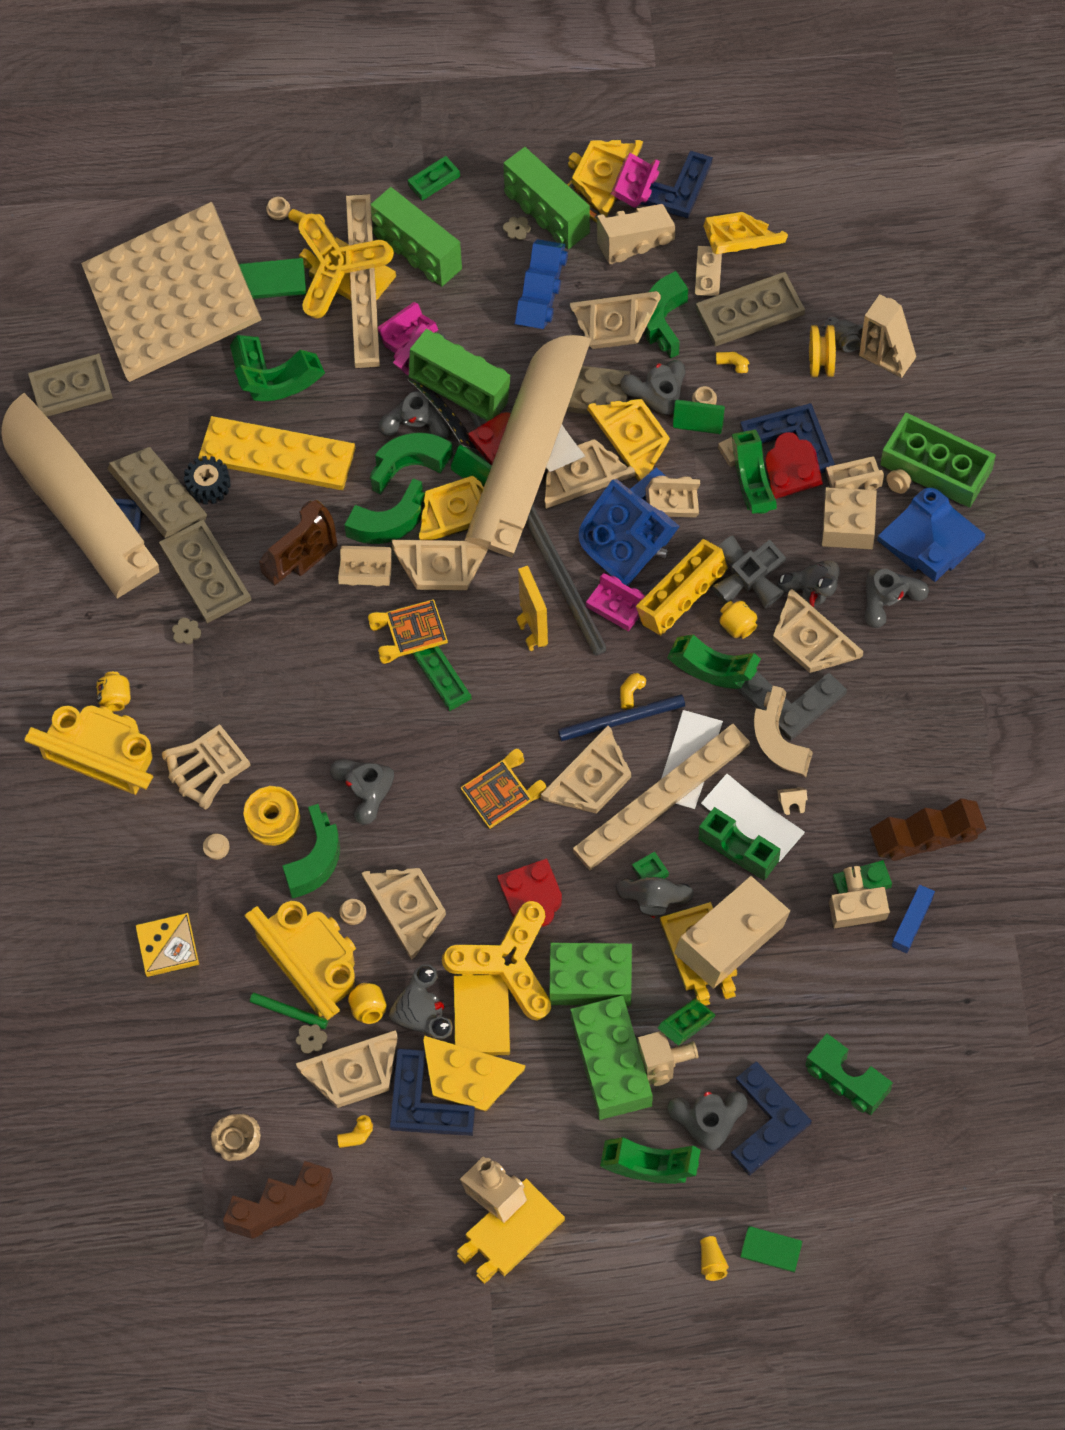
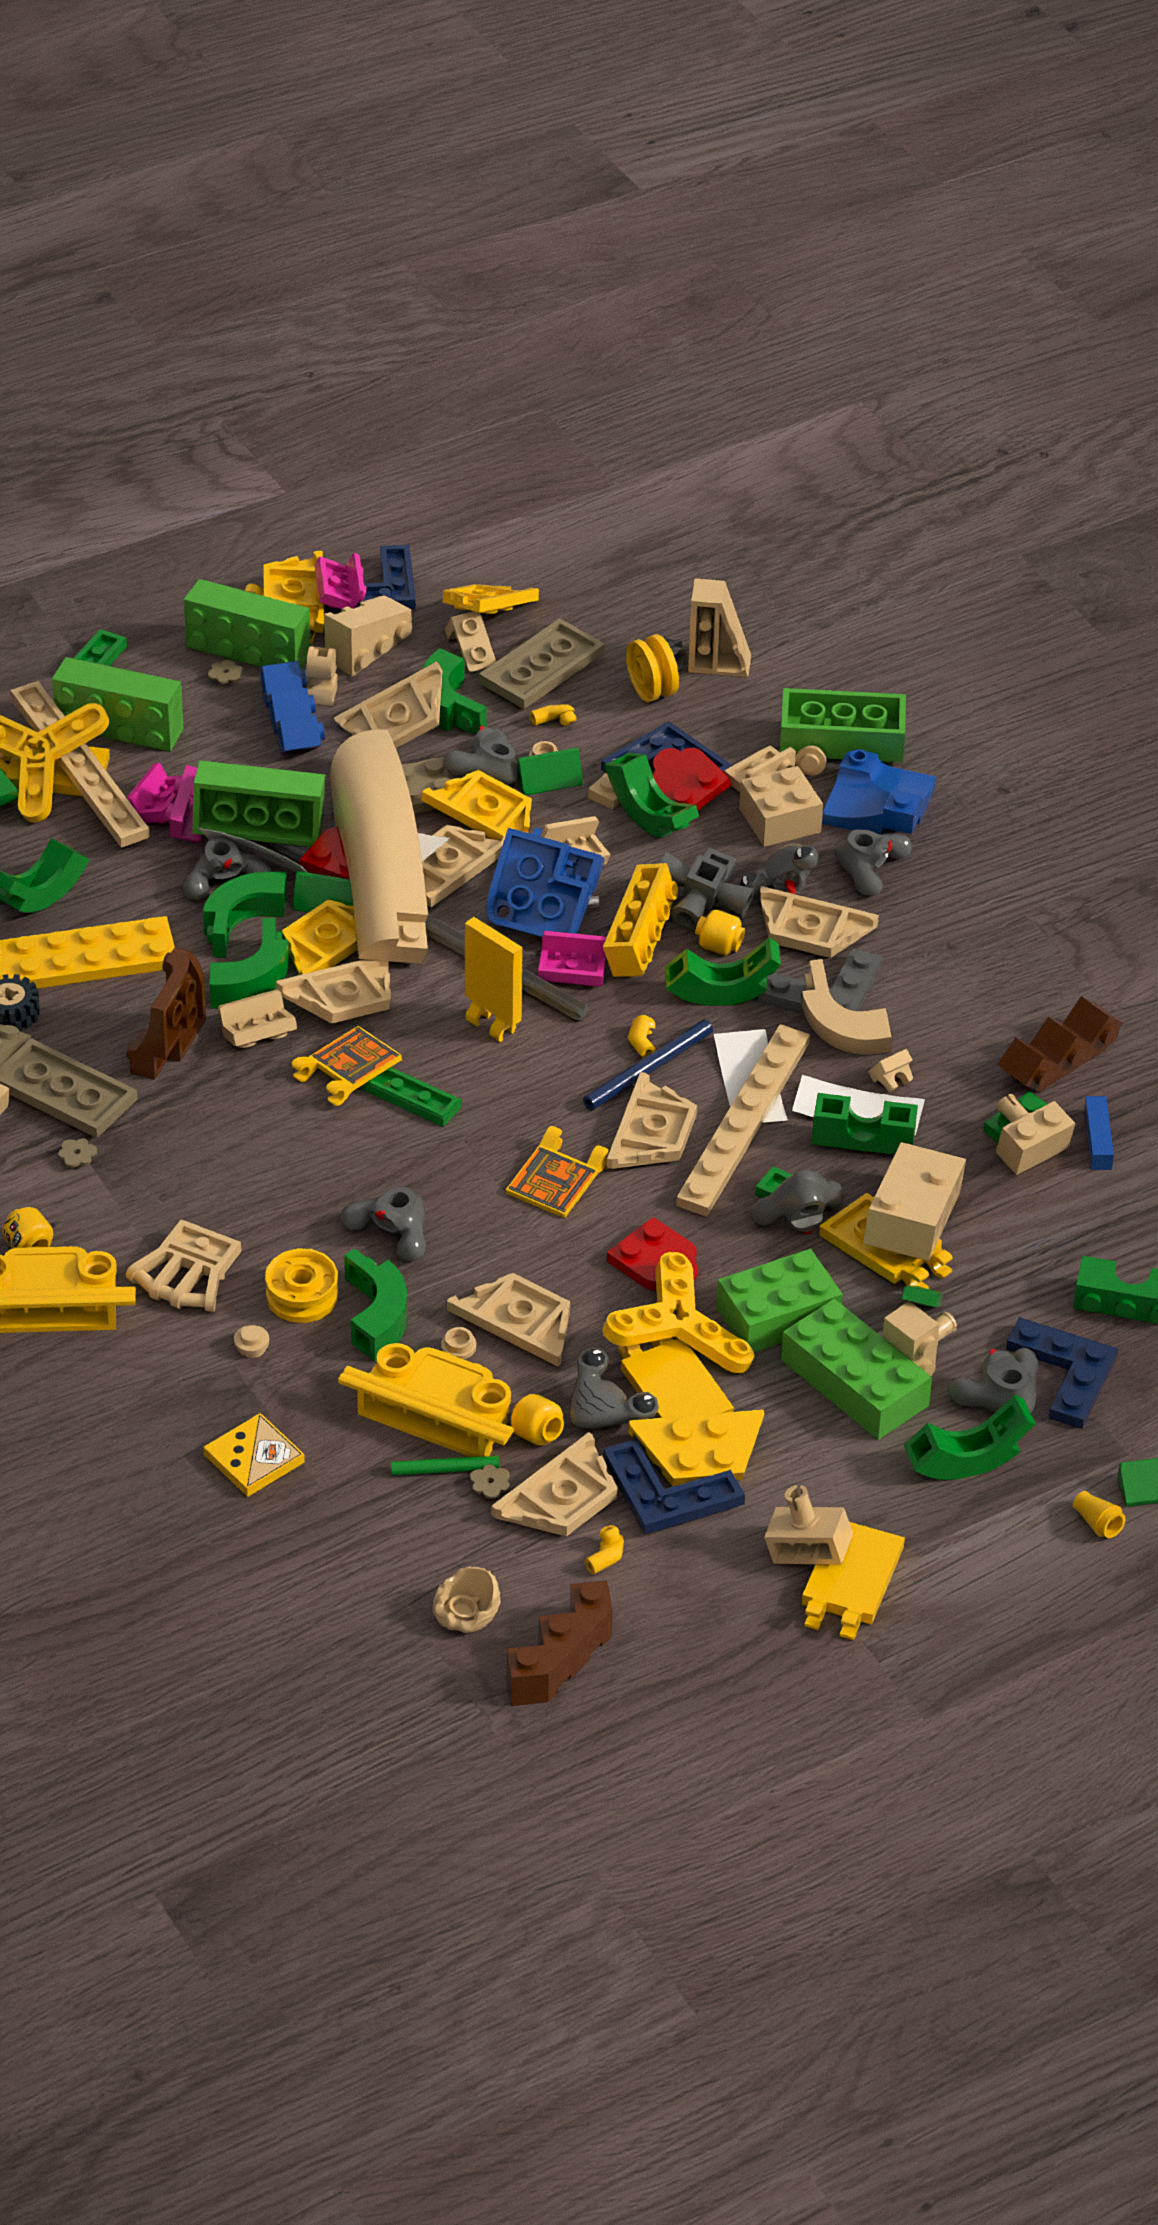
camera: 30 degrees left, 20 degrees down
(579, 263) = (321, 675): none -> tan leg

